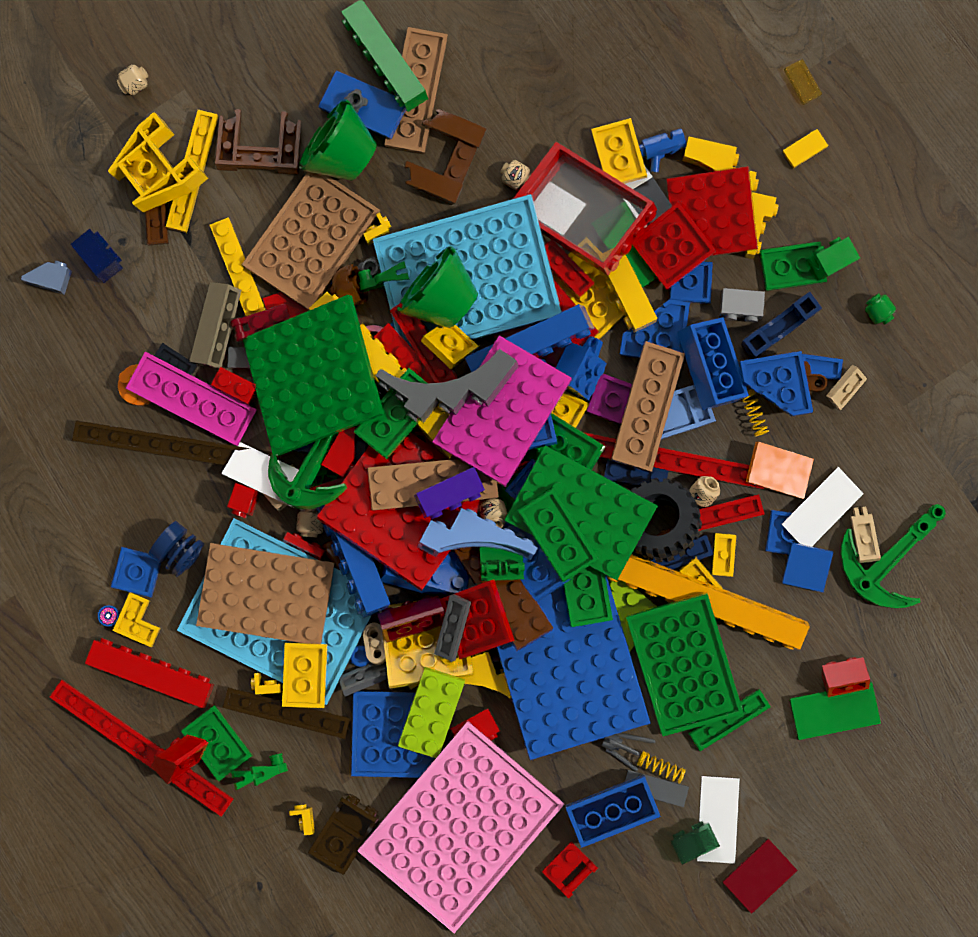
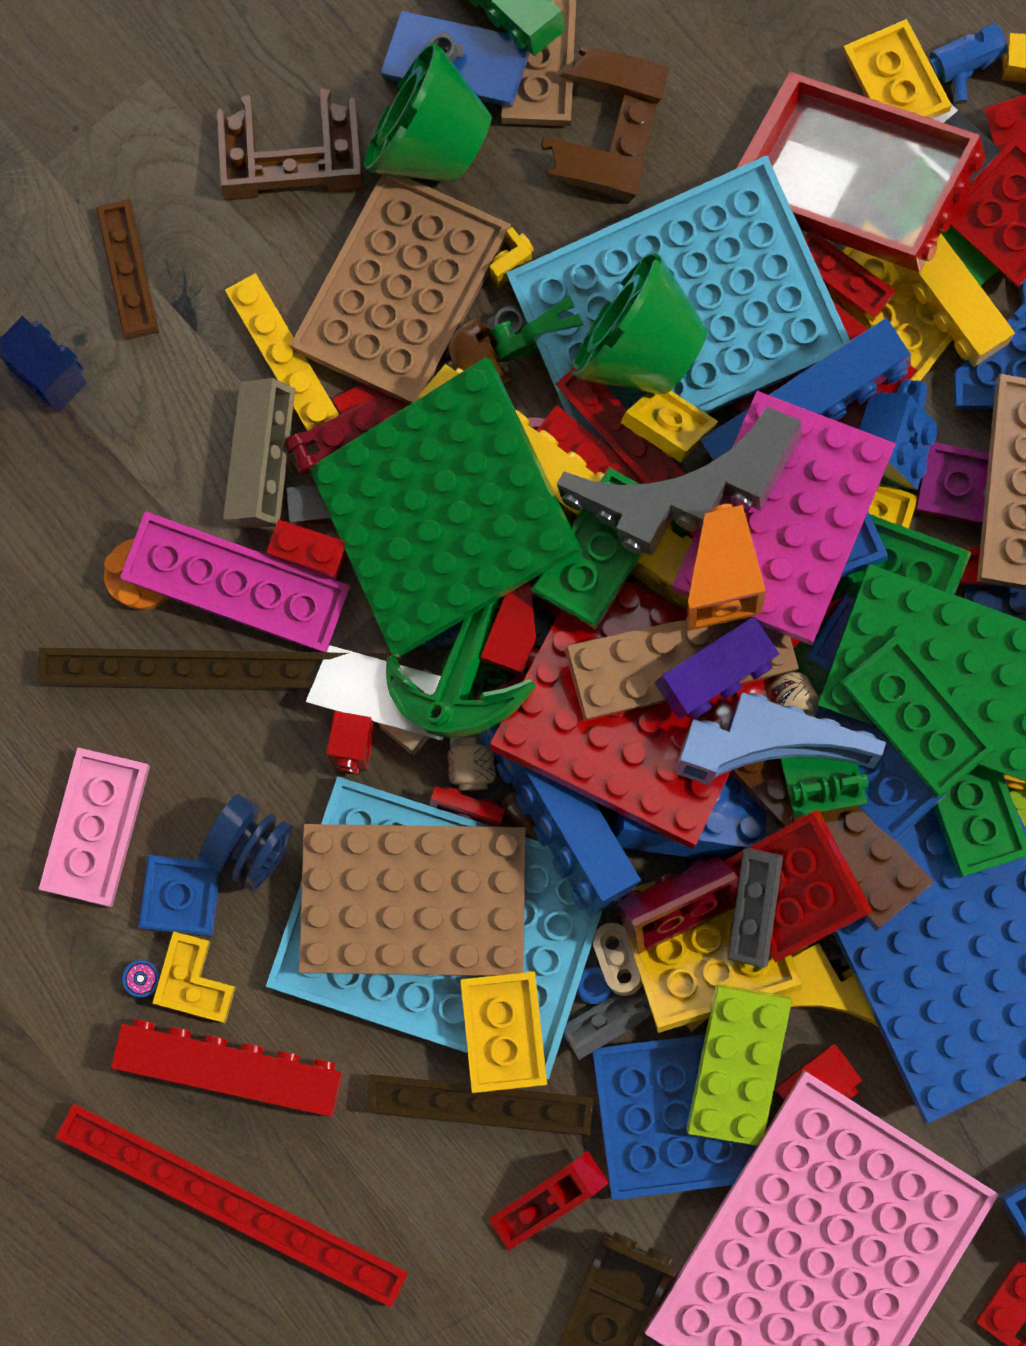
camera: 10 degrees left, 5 degrees down
(93, 527) = (94, 827): none -> bright pink plate
(132, 79) = (62, 71): tan head -> none
(149, 168) = (114, 210): yellow wedge -> none
(175, 359) = (199, 519): black plate -> none
(179, 757) = (302, 1210): red slope -> none
(198, 150) = (183, 207): yellow plate -> none
(224, 747) = (364, 1176): green plate -> none
(261, 773) = (450, 1218): green piece -> none
(269, 687) = (442, 1064): yellow bracket -> none
(306, 822) = (544, 1295): yellow bracket -> none
(316, 771) = (548, 1201): none -> red slope
(458, 440) = (726, 571): none -> orange slope
(515, 174) = (728, 137): tan head -> none

